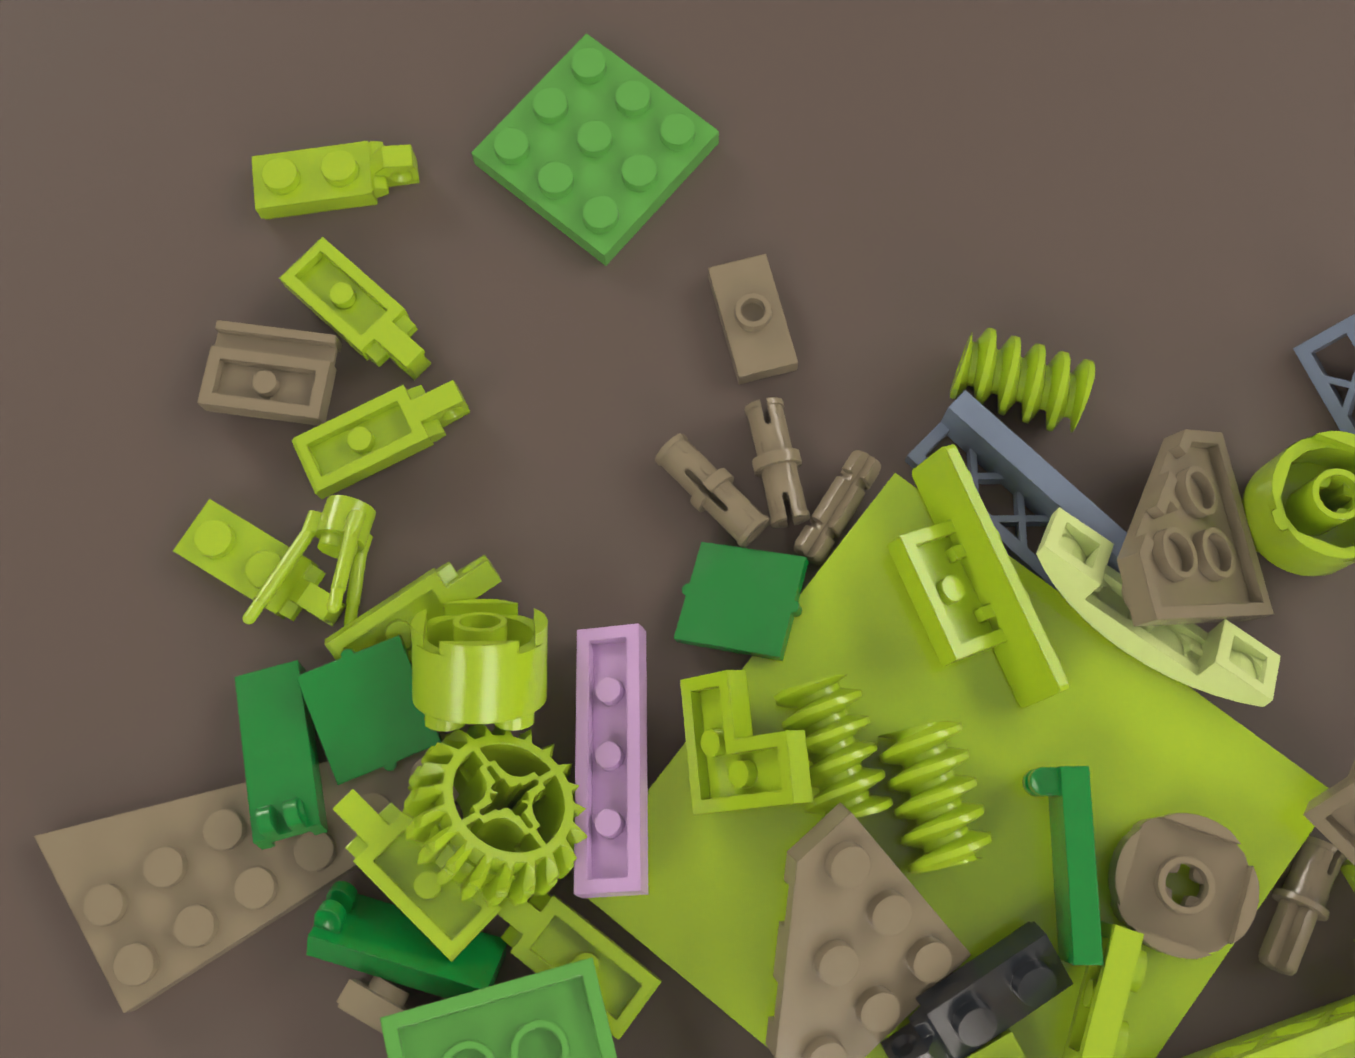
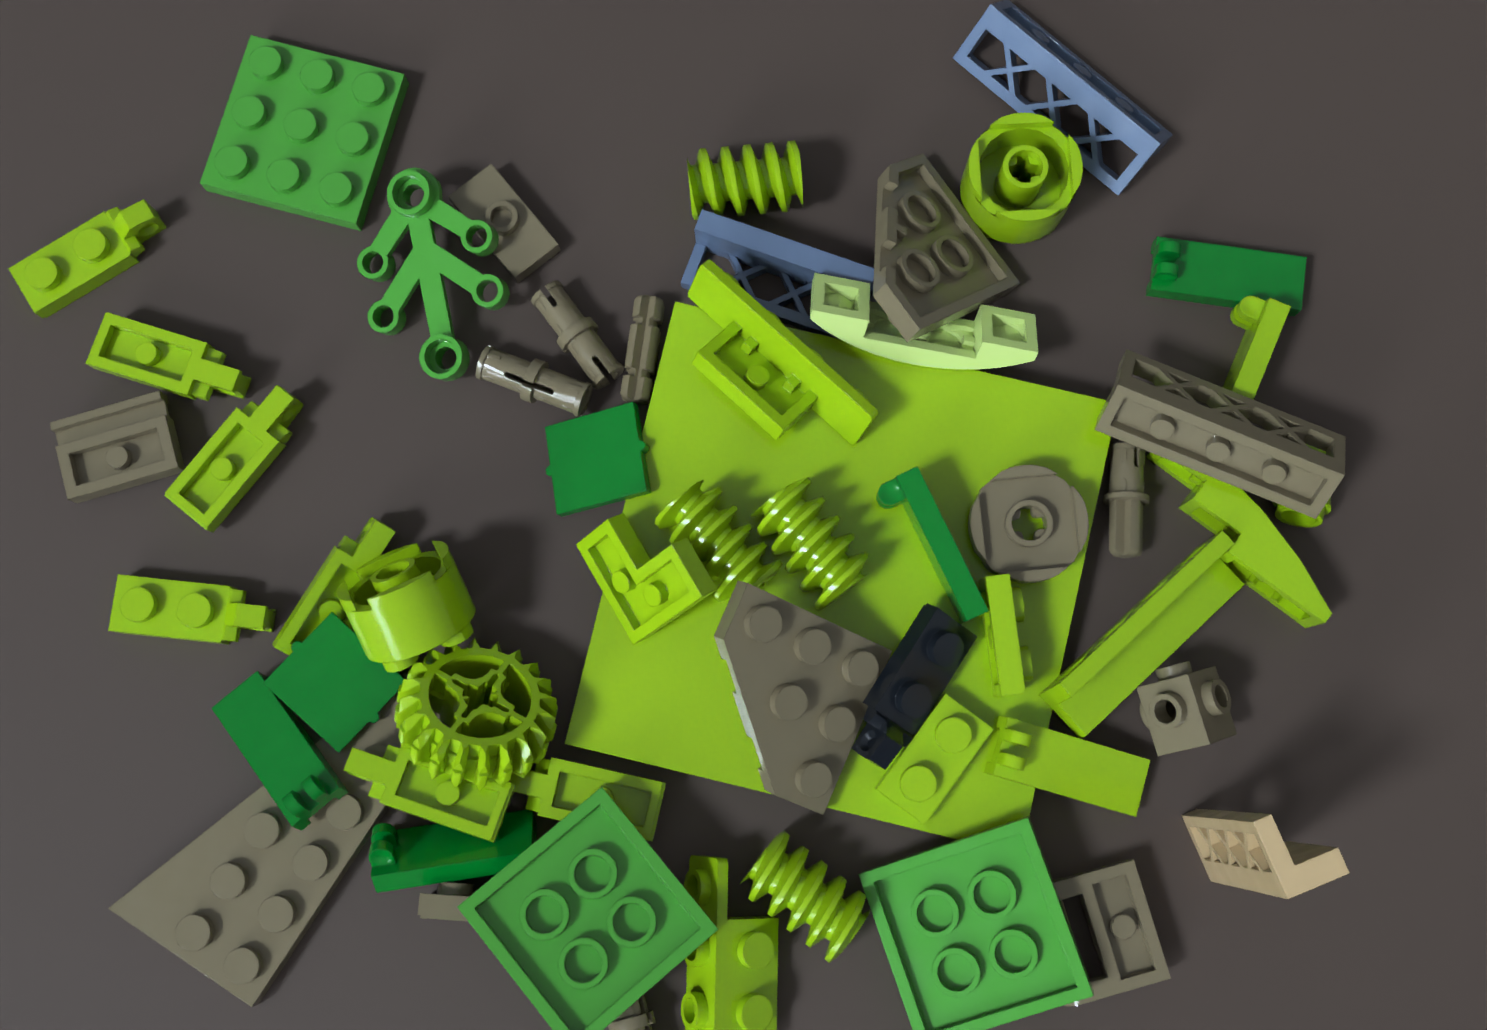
camera: 25 degrees left, 5 degrees up
(343, 535) = (245, 552): lime plant -> none
(611, 762) = (549, 631): lavender plate -> none
(655, 328) = (427, 266): none -> bright green plant

